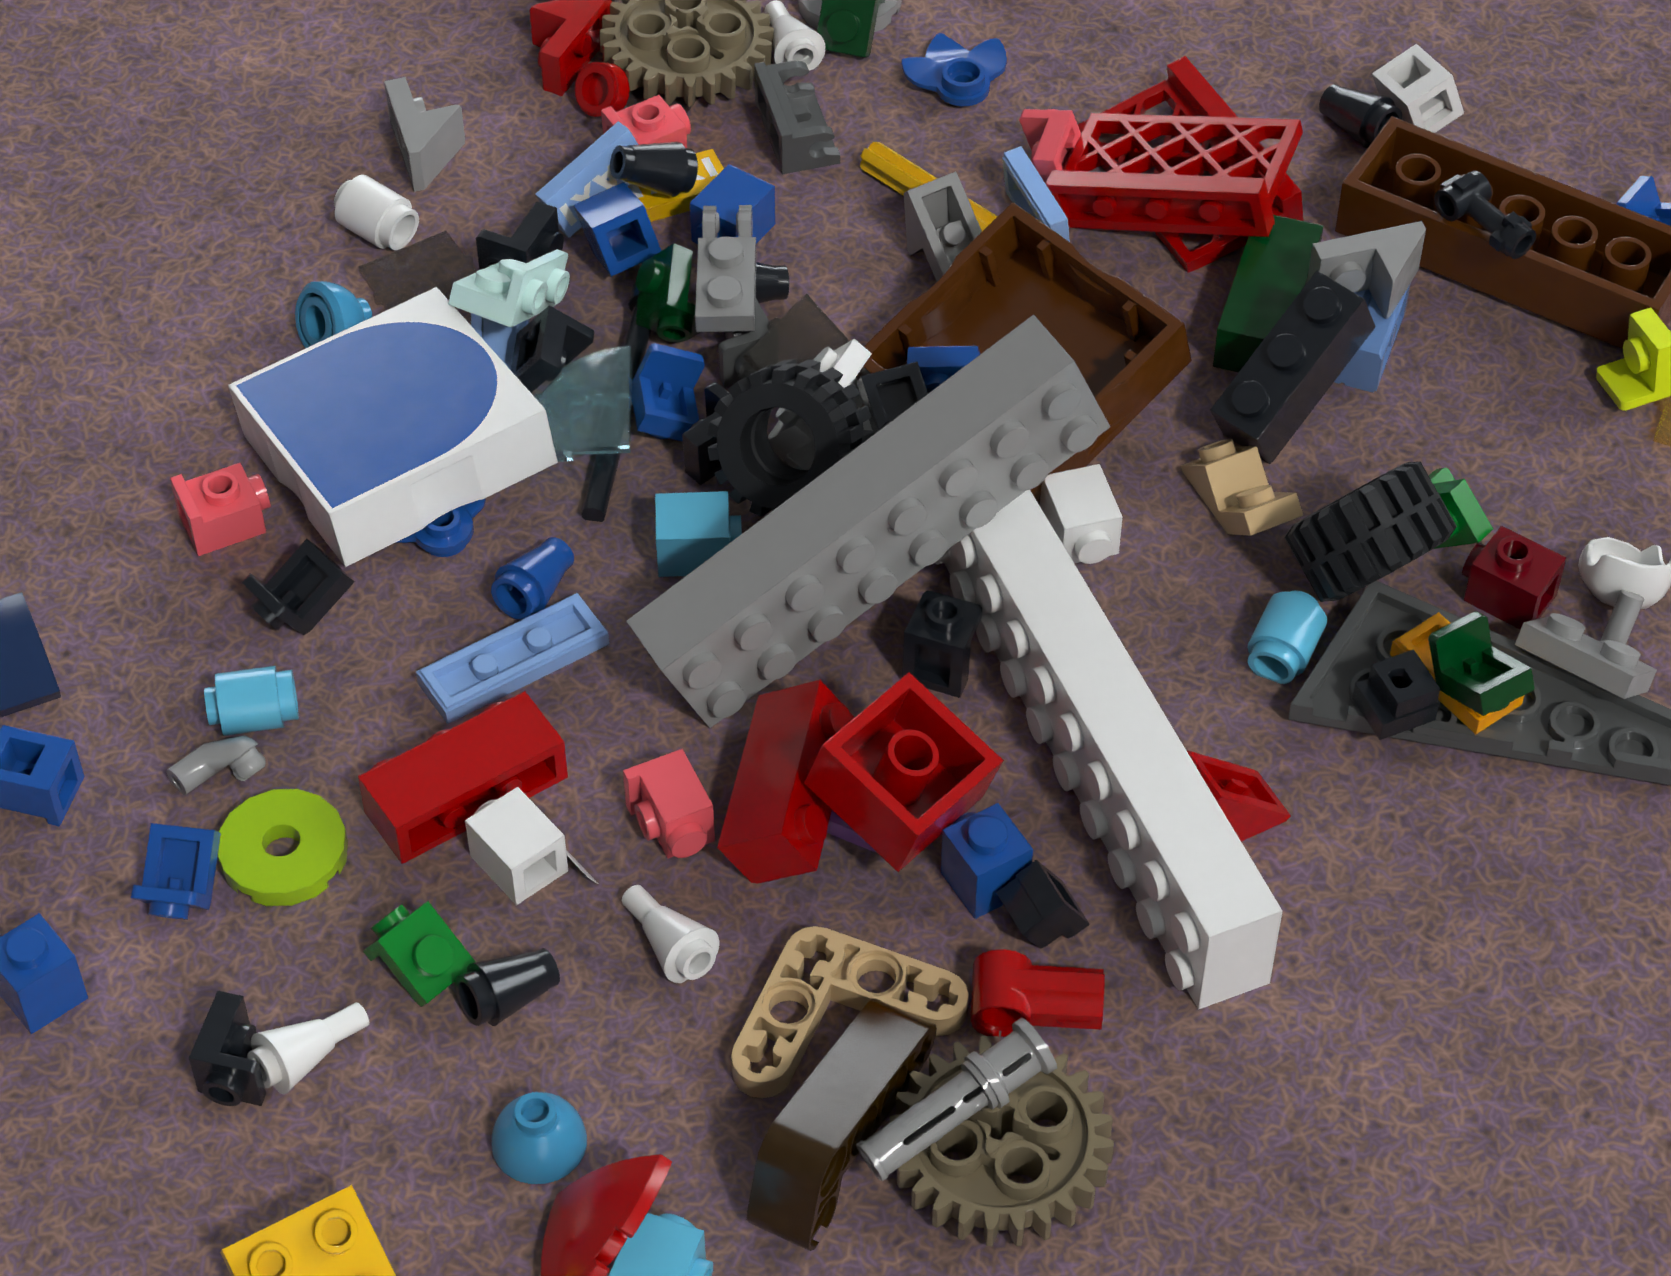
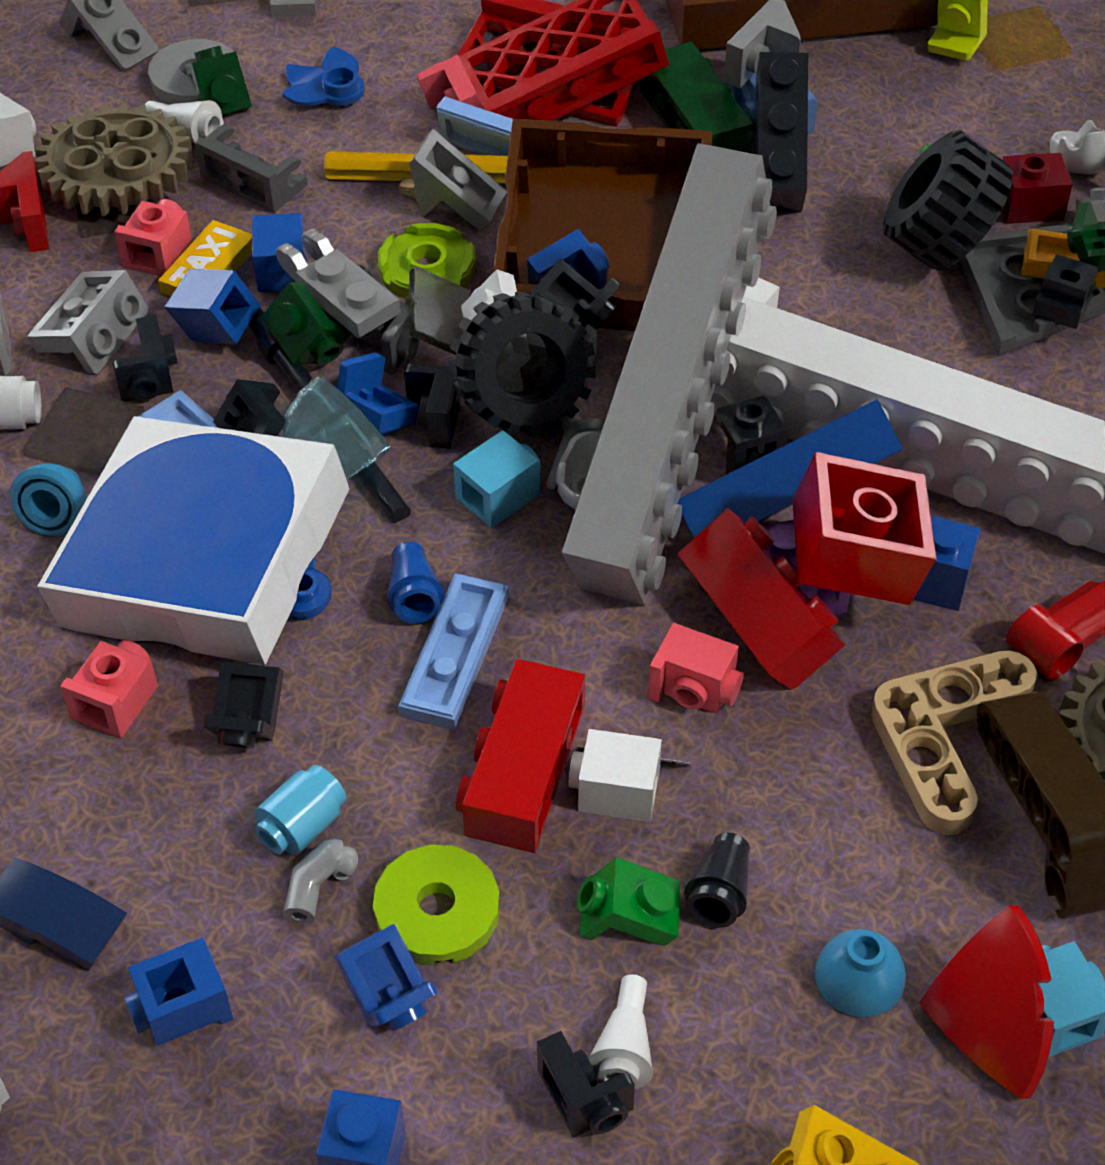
camera: 40 degrees left, 0 degrees up
(506, 180) = (91, 318): none -> light grey bracket
(513, 289) = (191, 393): light aqua bracket -> none
(584, 177) = (157, 276): light blue tile -> none
(600, 87) = (86, 223): red tile -> none
(656, 166) = (203, 245): black cone -> none
(680, 944) = (801, 761): white cone -> none
(846, 277) = (422, 240): none -> lime tile
(975, 691) = (772, 480): none -> blue tile
(1042, 906) = (1003, 567): black piece -> none
(1237, 489) = (807, 238): tan slope -> none
(1286, 636) = (945, 304): medium azure brick -> none

